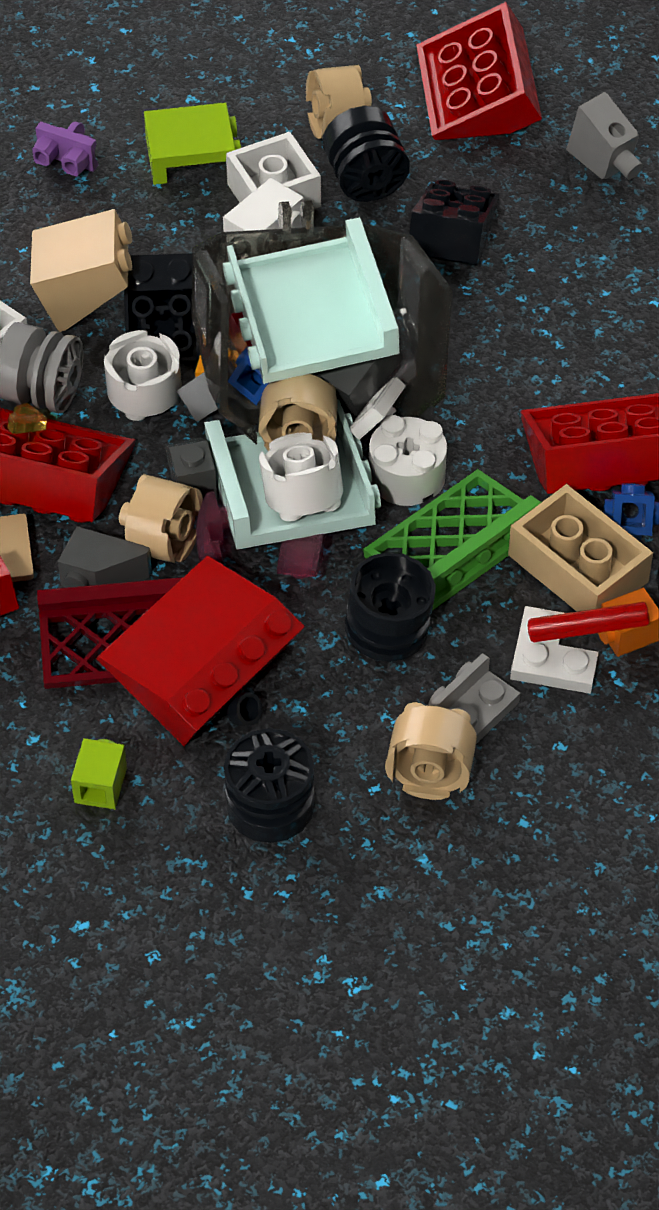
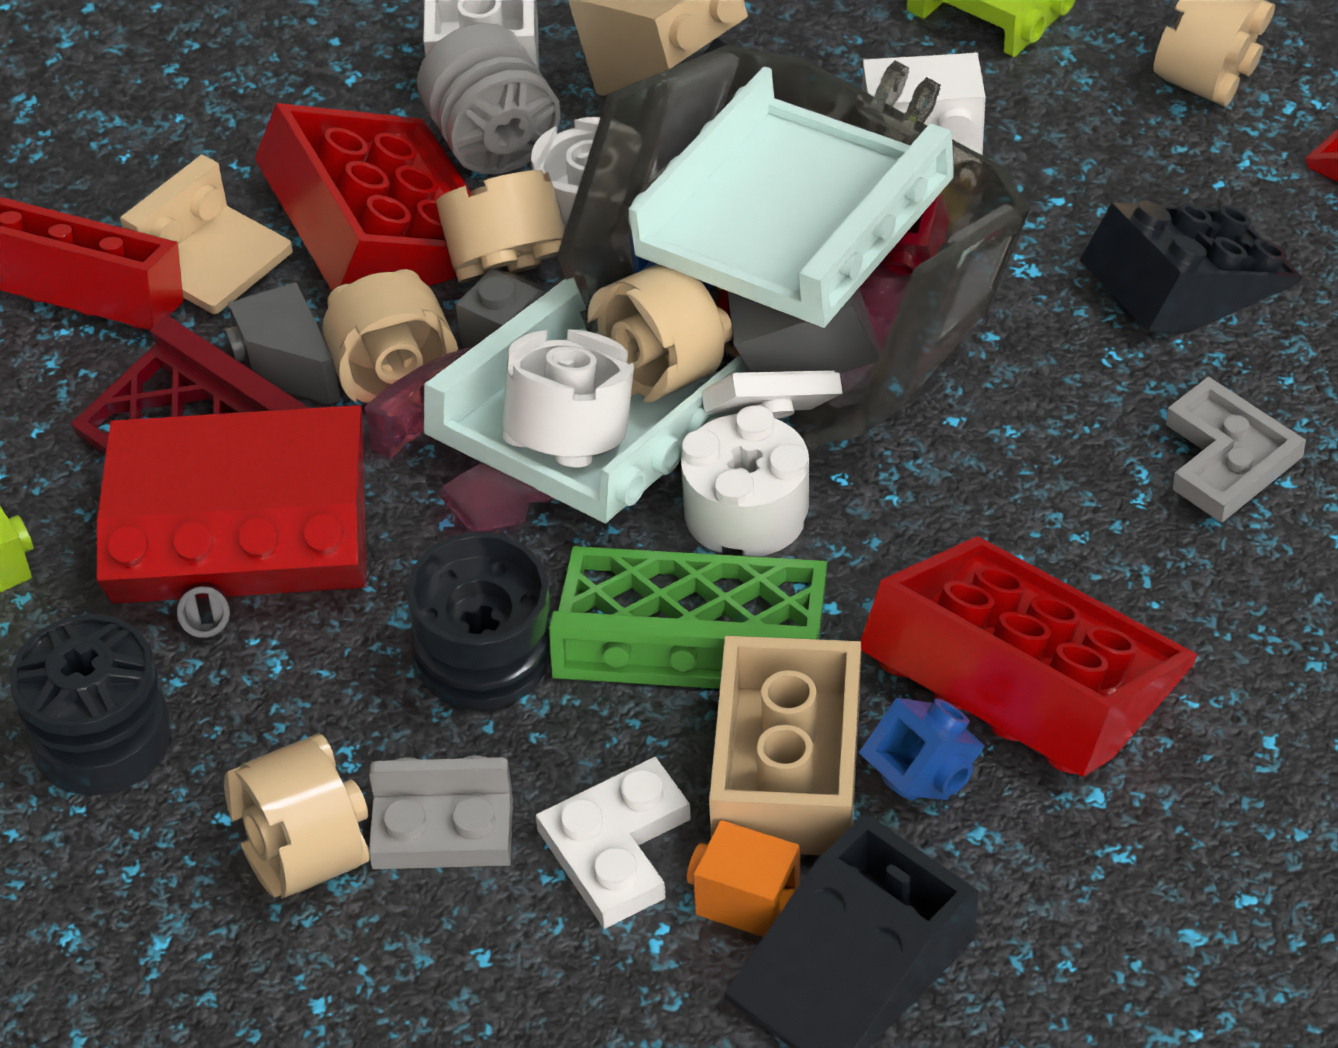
camera: 50 degrees right, 5 degrees down
(26, 419) = (408, 146): clear yellow tile -> none
(145, 423) = (502, 224): none -> tan brick
(275, 159) = (1030, 74): white brick -> none
(366, 153) = (1164, 113): black wheel -> none
(578, 286) = (1239, 446): none -> light grey plate
(588, 622) = (668, 826): red axle -> none

